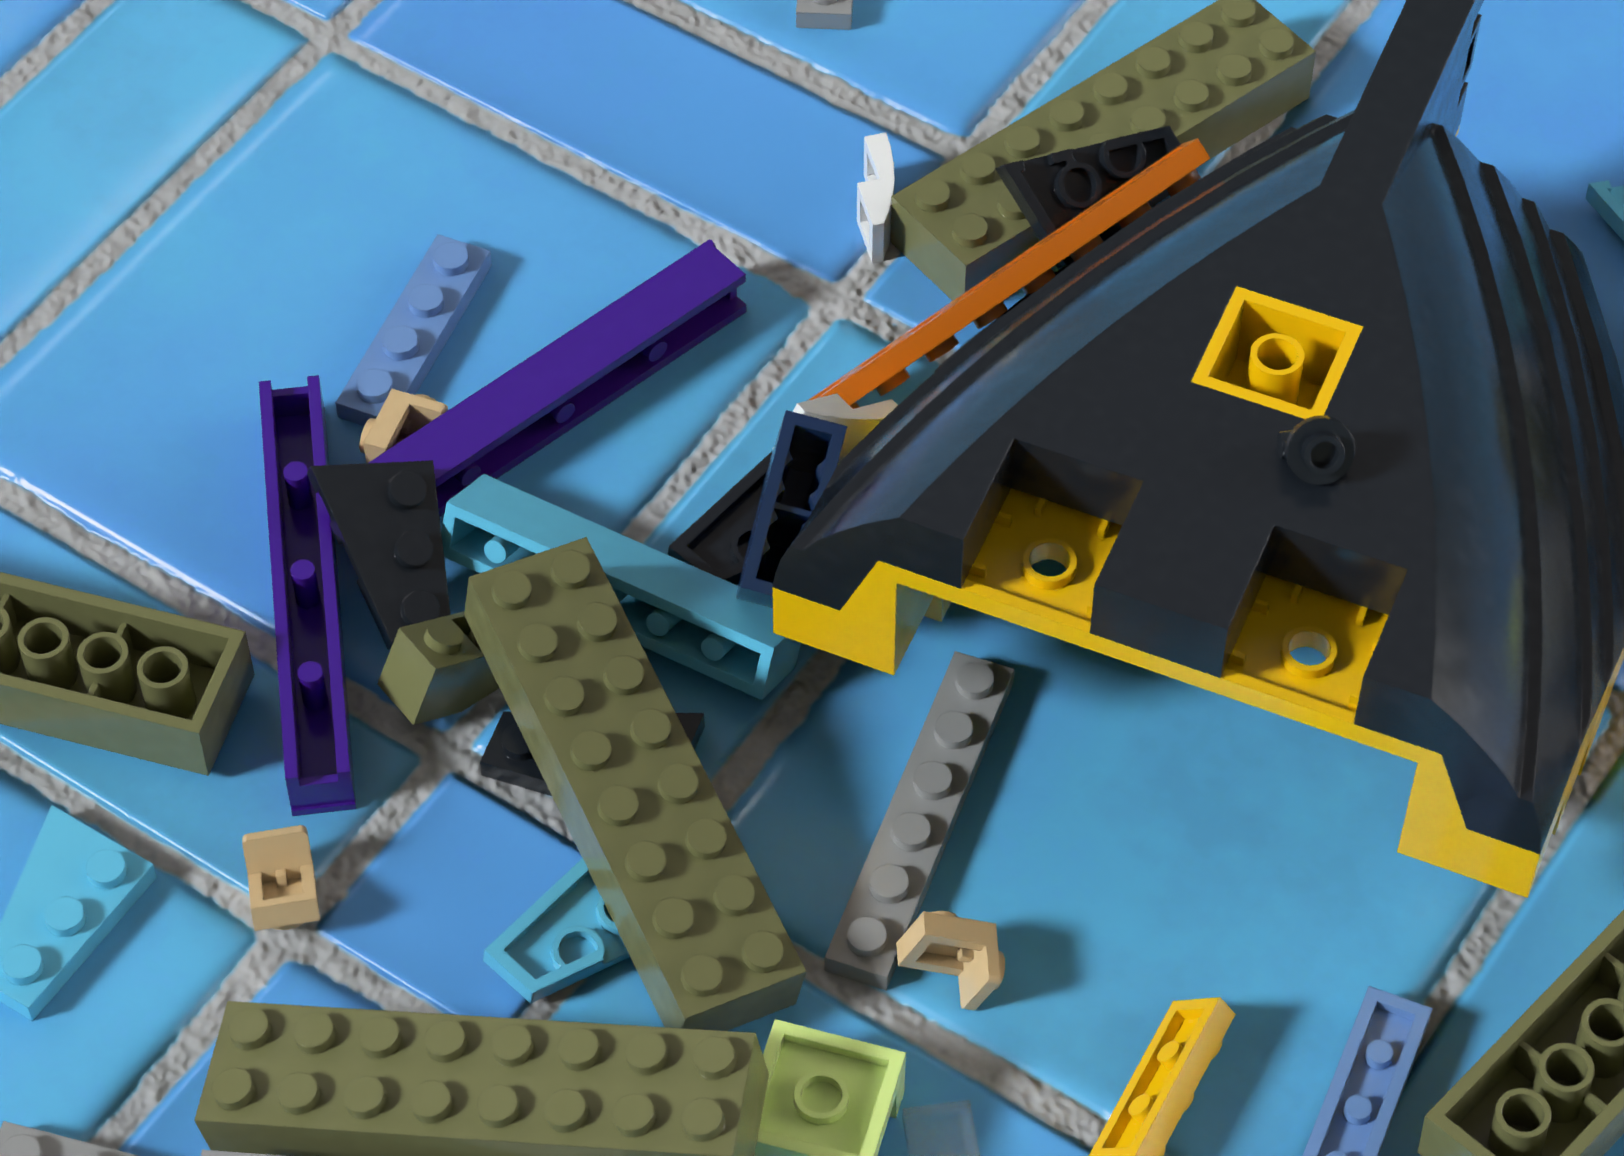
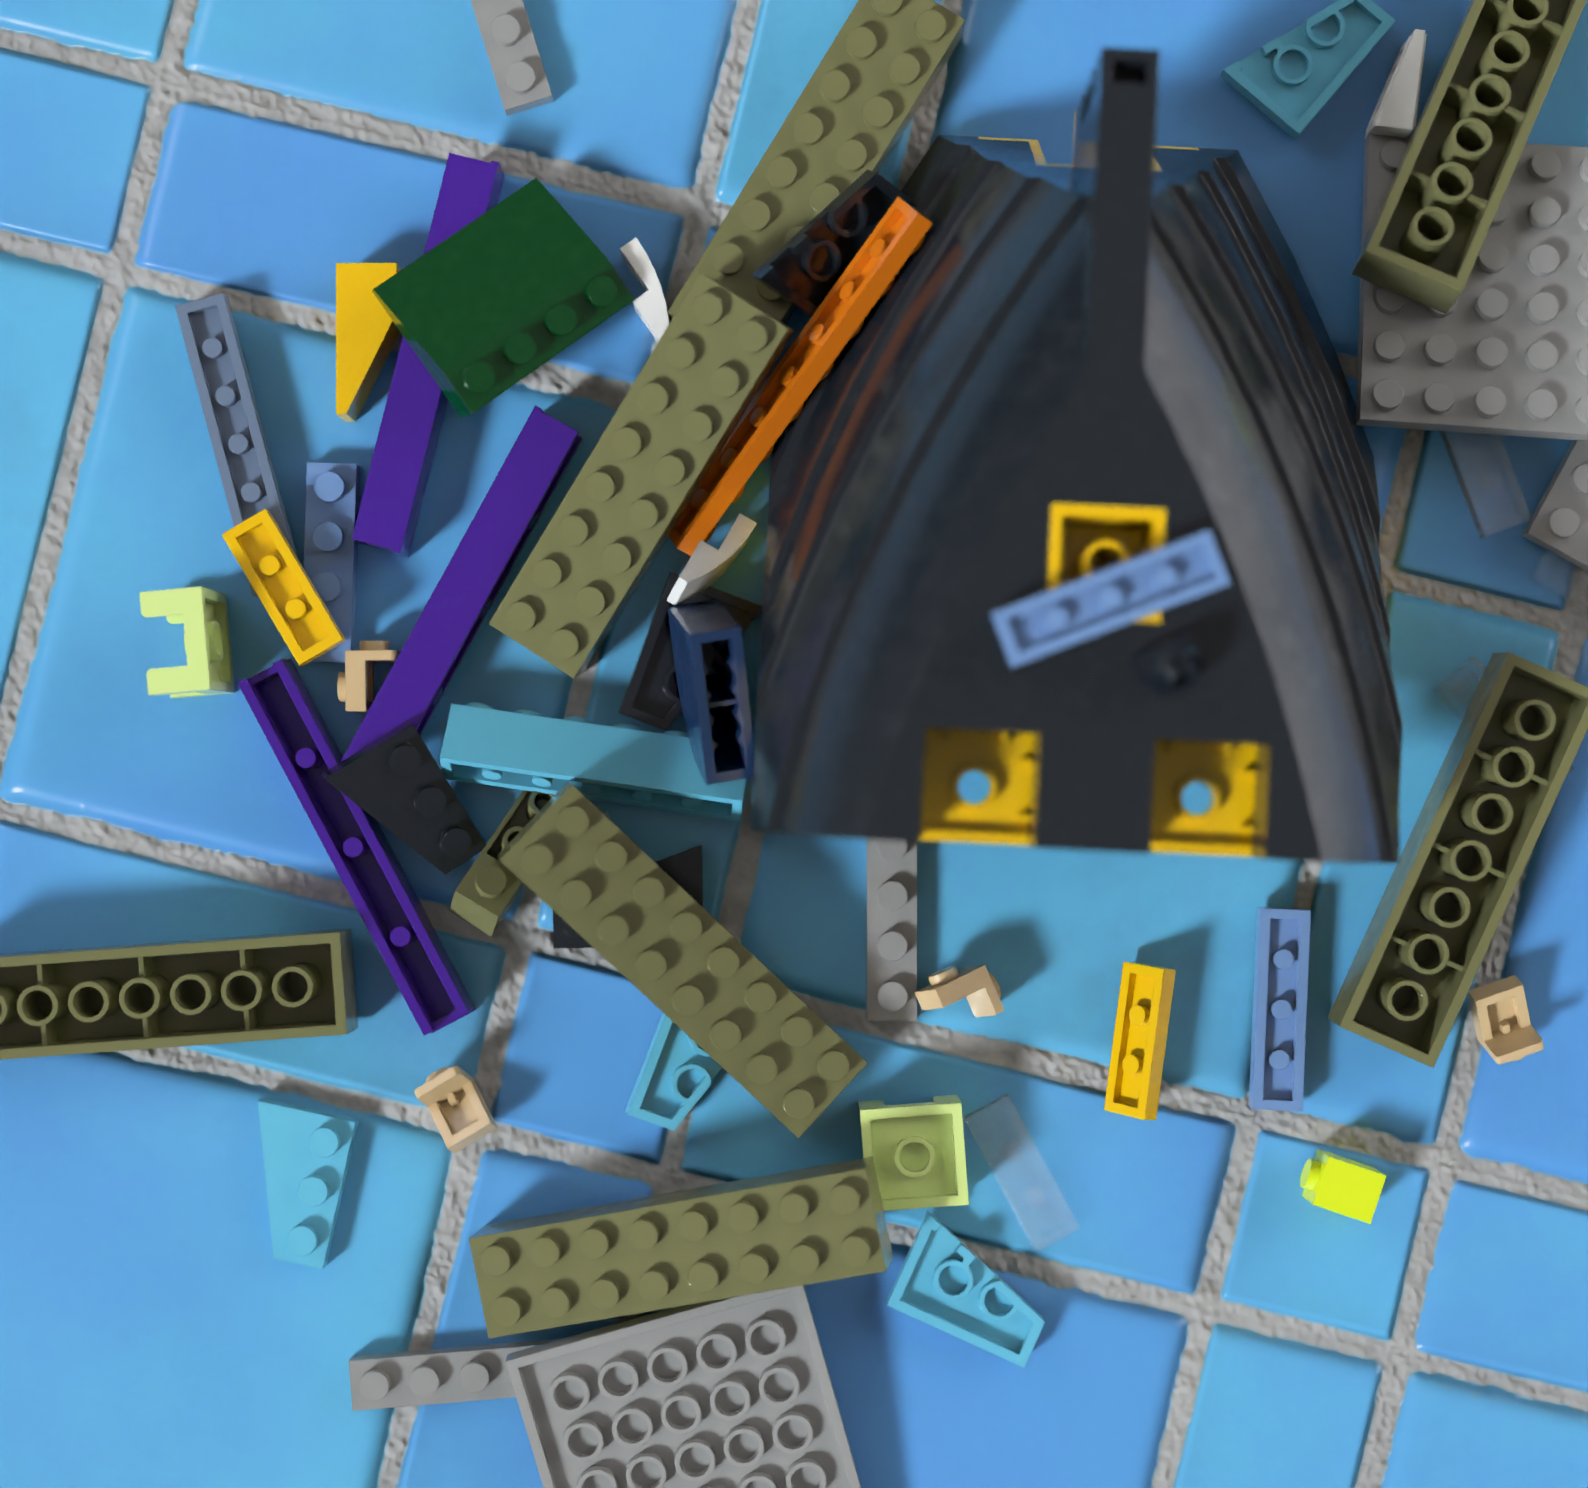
camera: 20 degrees left, 35 degrees up
(239, 337) = (205, 642): none -> yellowish green panel
(356, 315) = (283, 587): none -> yellow plate
(373, 203) = (231, 411): none -> sand blue plate
(560, 142) = (362, 333): none -> yellow slope
(611, 184) = (414, 400): none -> dark purple tile
(721, 144) = (502, 297): none -> dark green slope
(794, 322) = (641, 475): none -> olive brick
(1268, 369) = (1110, 598): none -> medium blue plate

